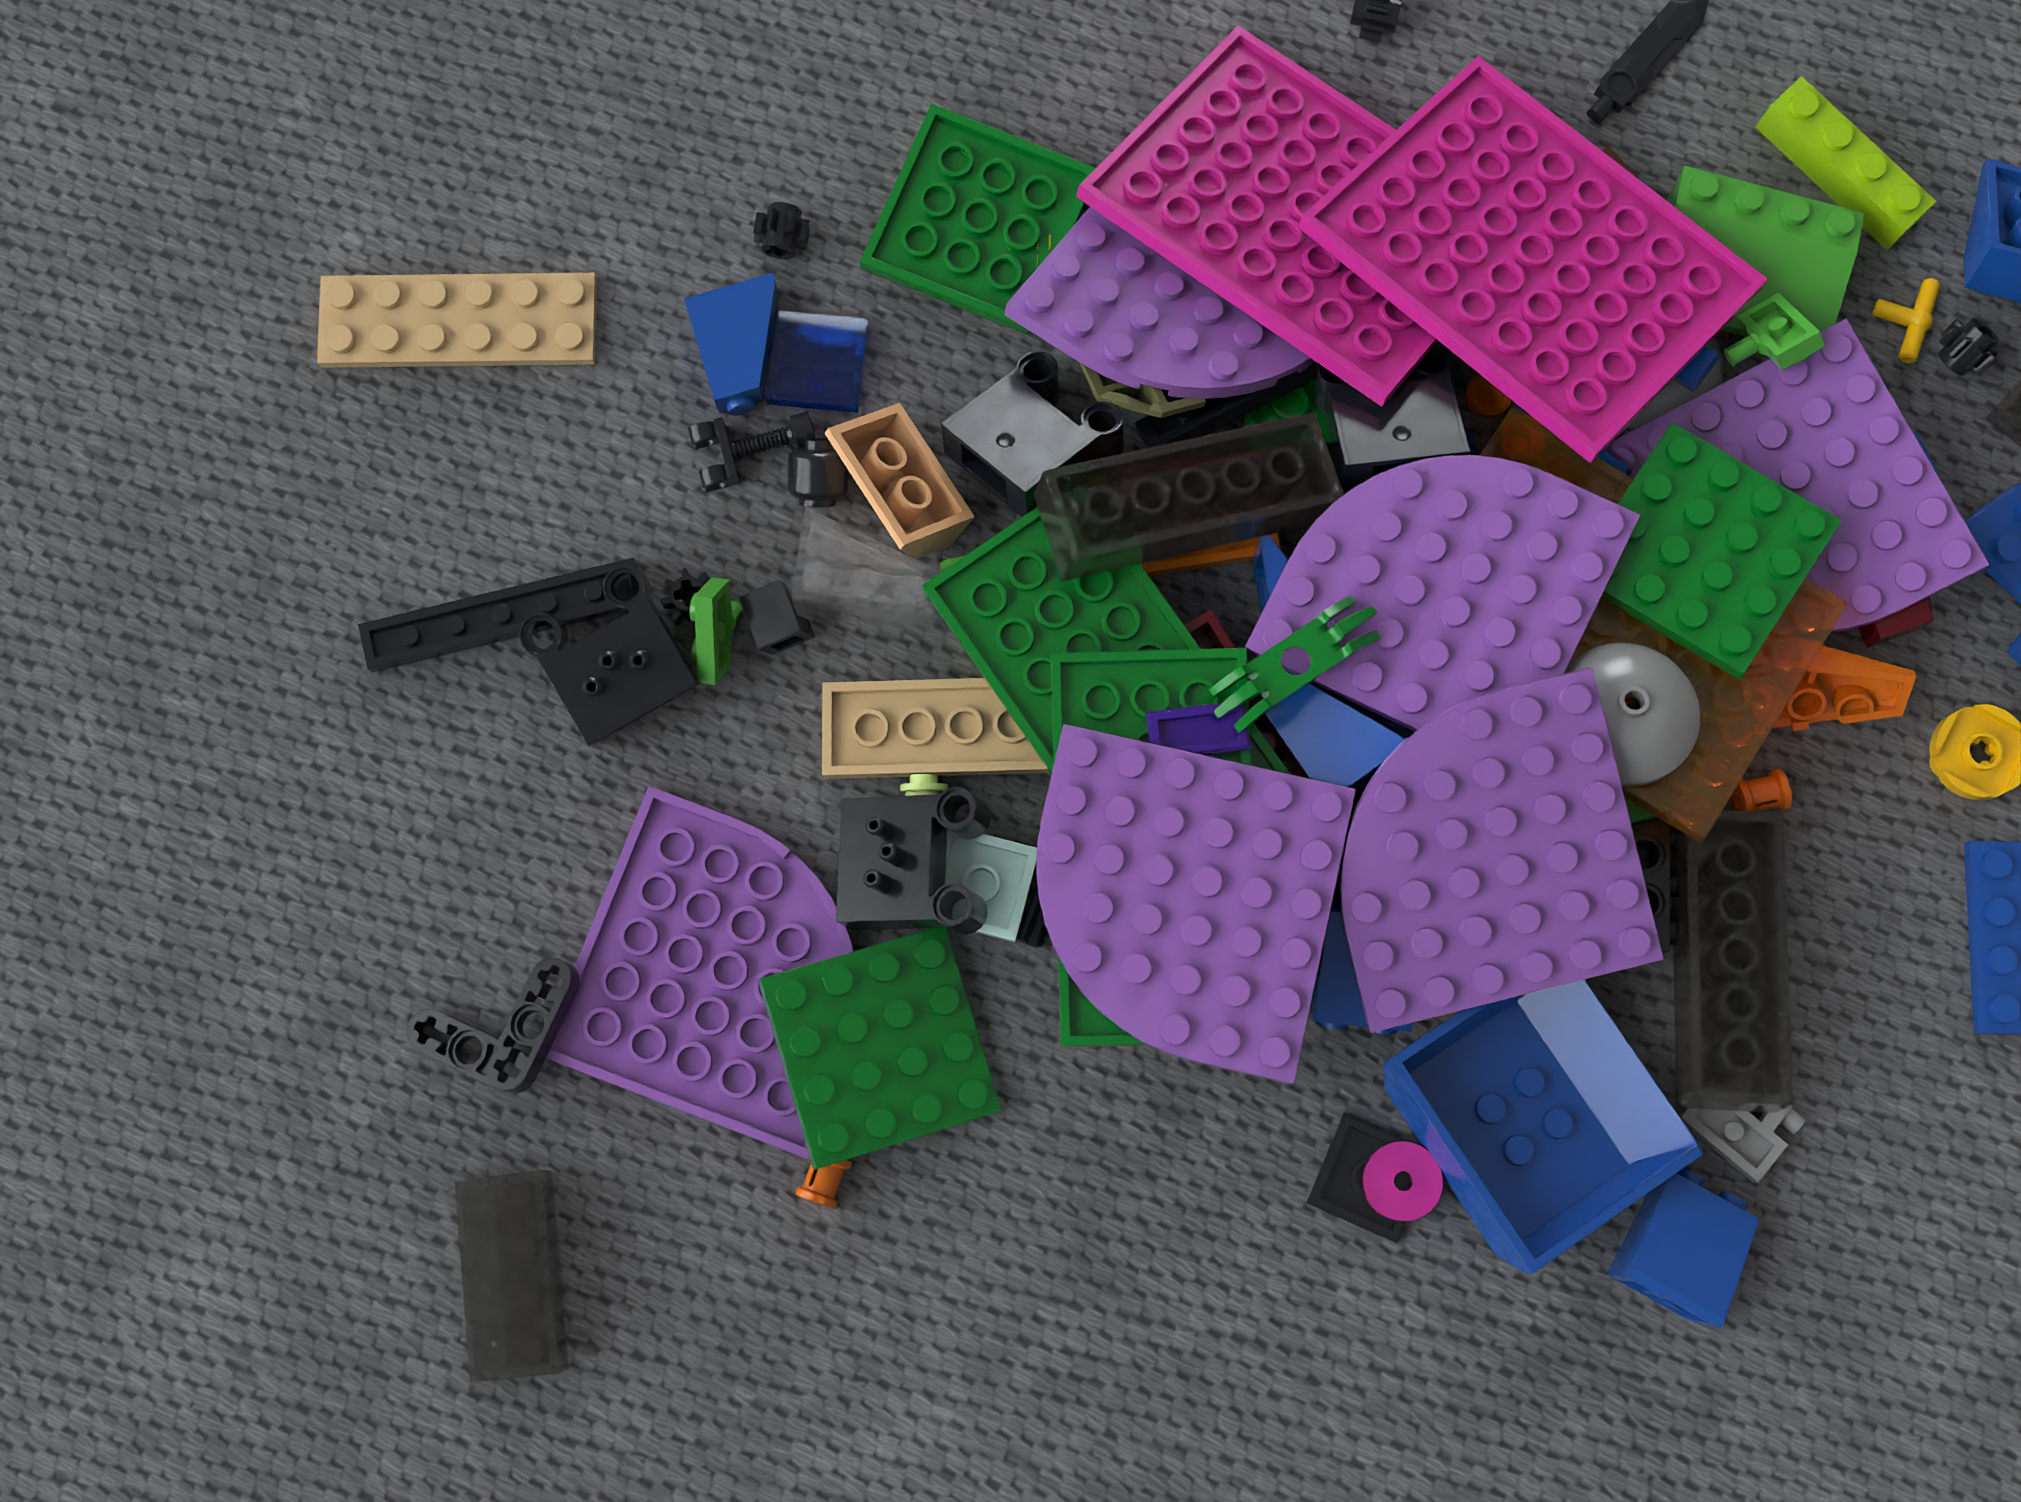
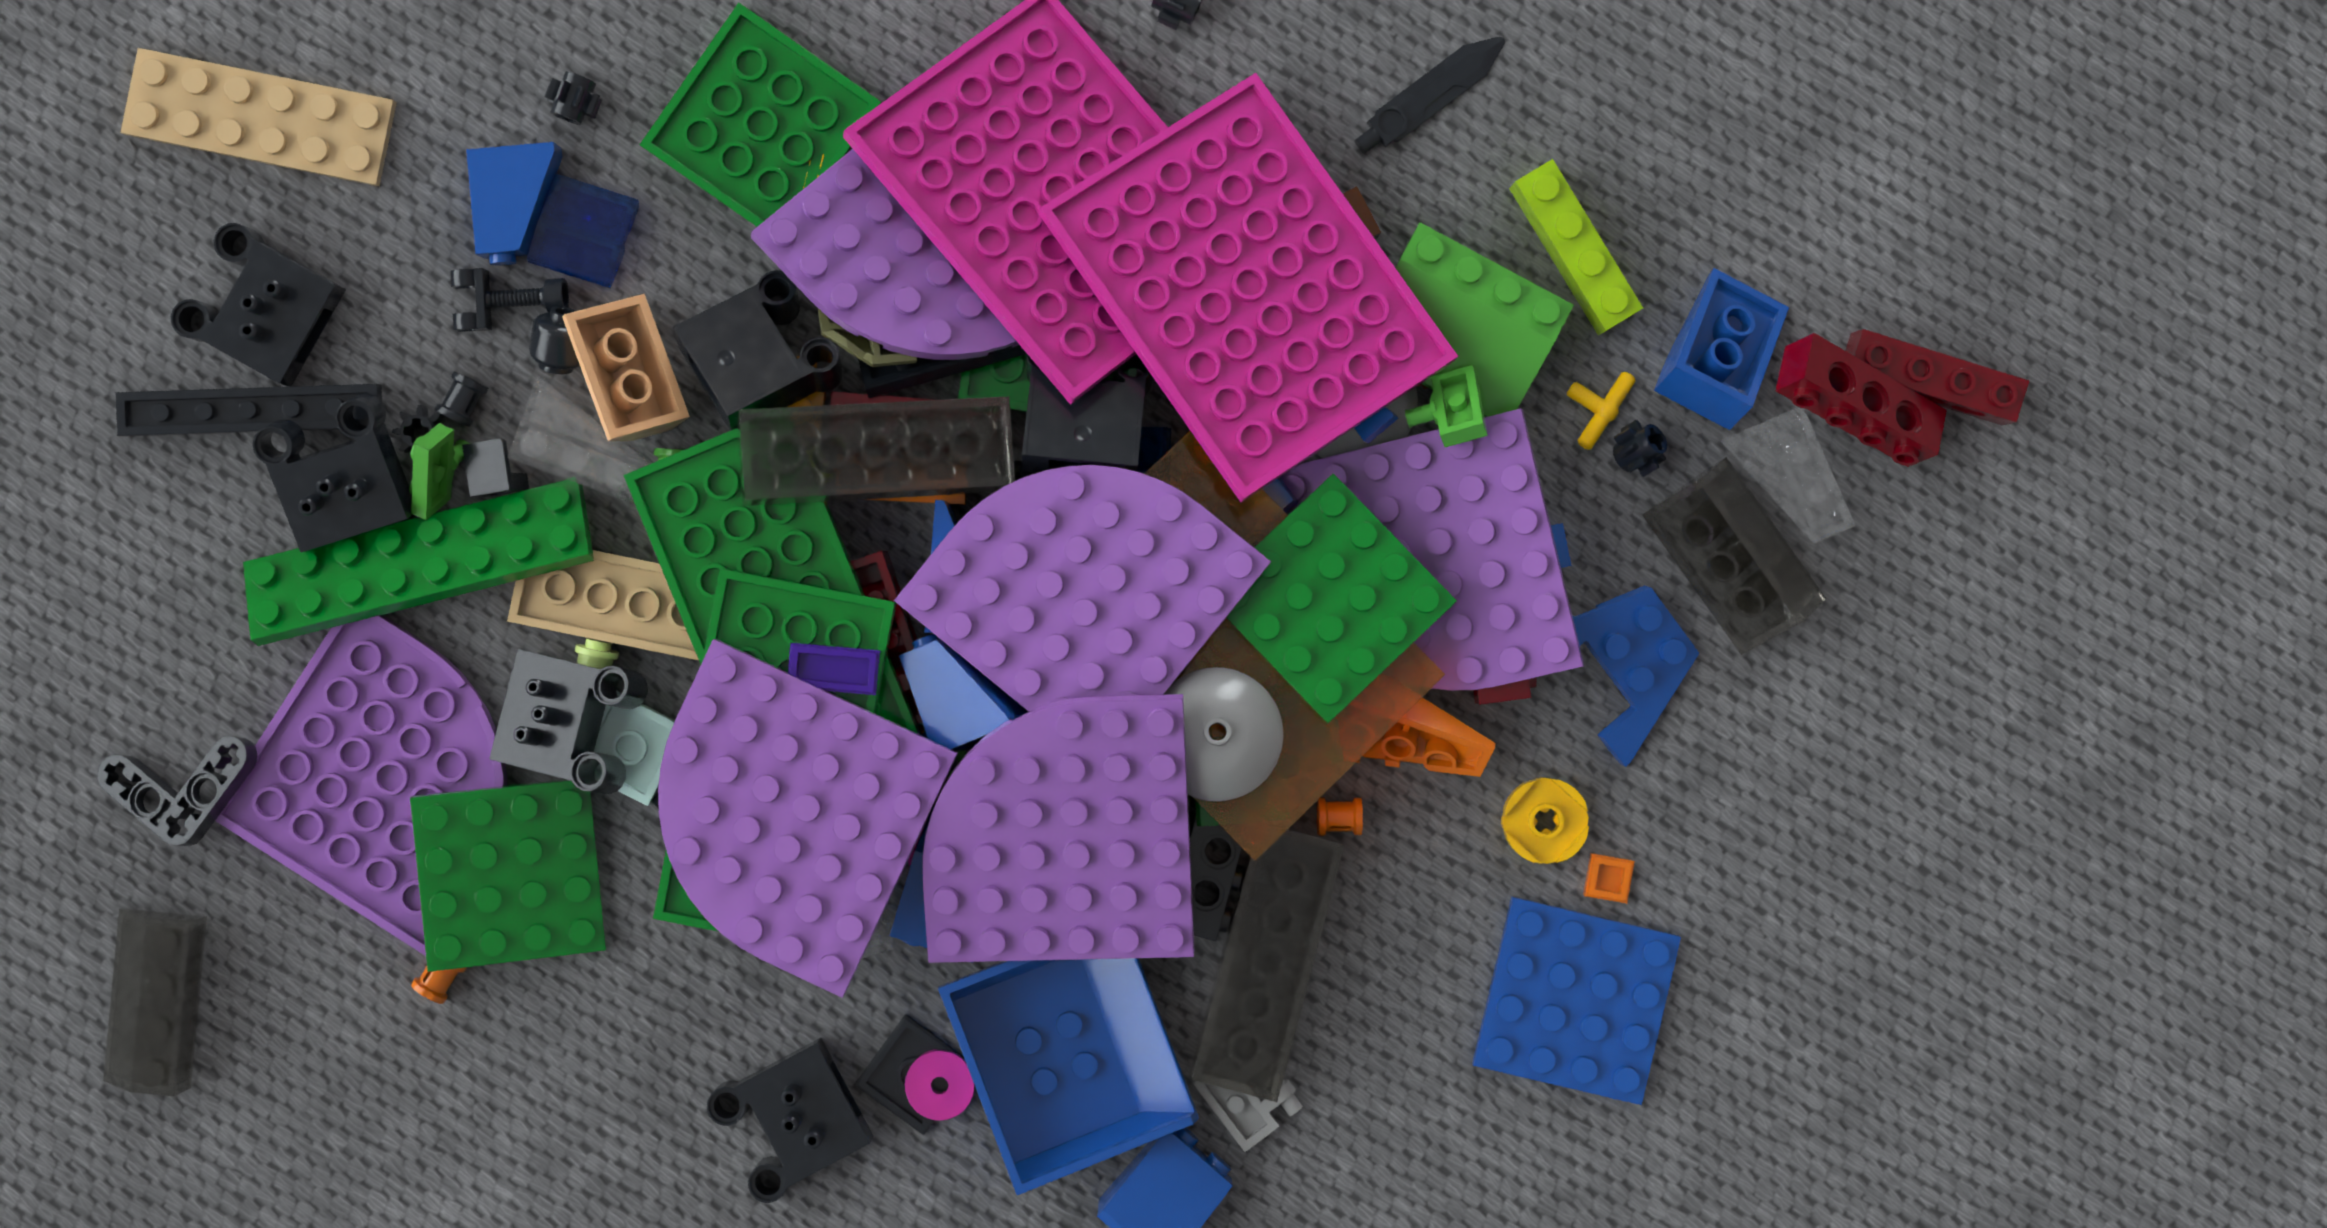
camera: 10 degrees right, 10 degrees up
(507, 508) = (269, 313): none -> black piece
(712, 732) = (418, 562): none -> green plate
(726, 554) = (461, 399): none -> black bush
(1261, 1245) = (802, 1112): none -> black piece
(1270, 678) = (956, 627): green piece -> none

